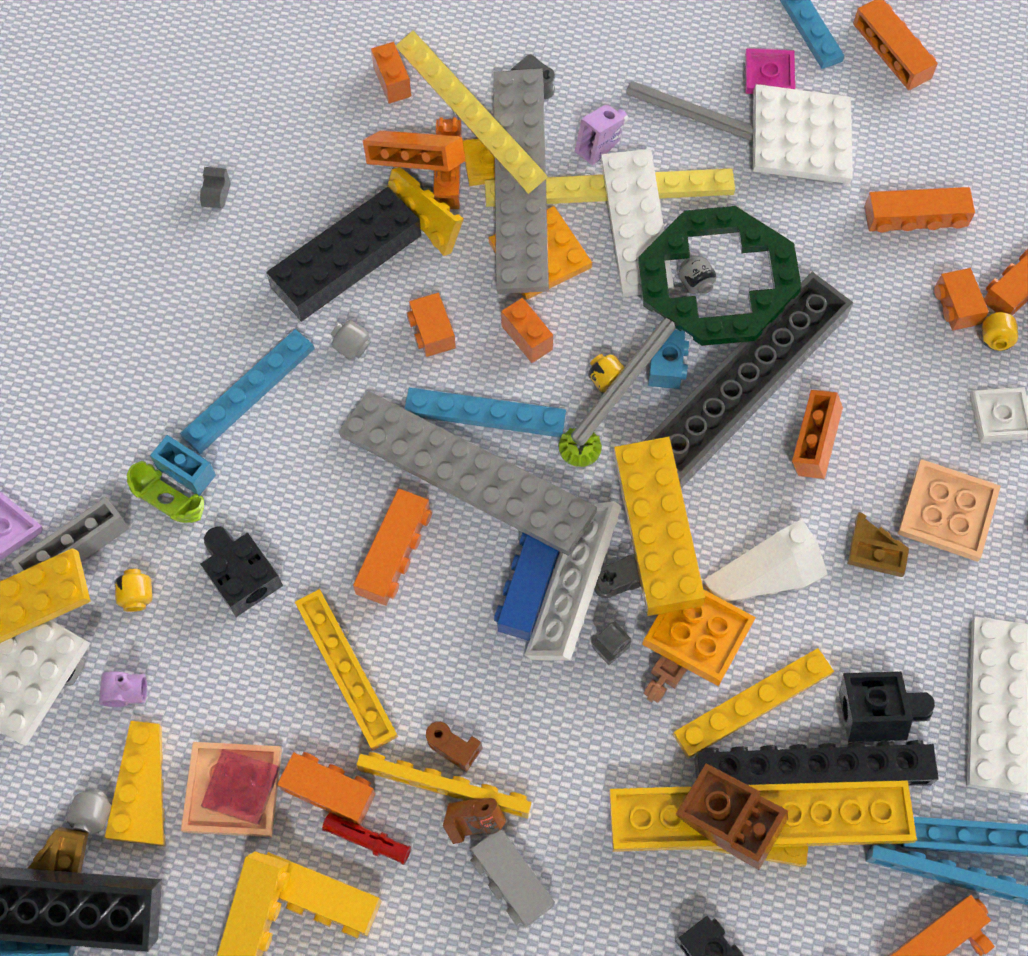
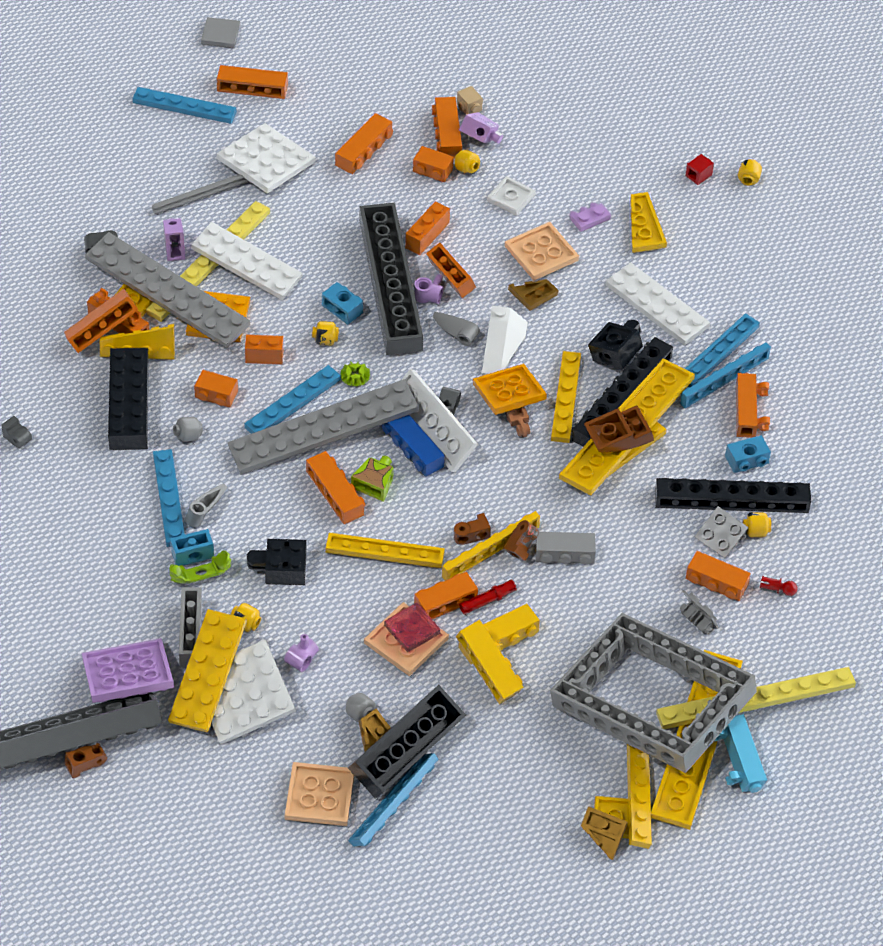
camera: 55 degrees left, 15 degrees down
(138, 797) = (365, 680): yellow wing -> none
(259, 432) = (203, 505): none -> light grey piece
(391, 72) = (26, 304): orange brick -> none
(443, 578) = (374, 477): none -> lime torso
(472, 112) = (96, 280): light yellow plate -> none
(612, 643) = (481, 428): dark grey leg -> none
(623, 382) = (341, 325): light grey axle -> none
(659, 526) = (442, 359): yellow brick -> none
(697, 275) = (306, 258): light grey head -> none
(742, 504) = (460, 328): none -> light grey piece
(753, 237) = (314, 216): dark green plate -> none
(769, 68) = (209, 143): dark pink plate -> none
(771, 440) = (427, 291): none -> lavender piece
(859, 363) = (427, 228): none -> orange brick

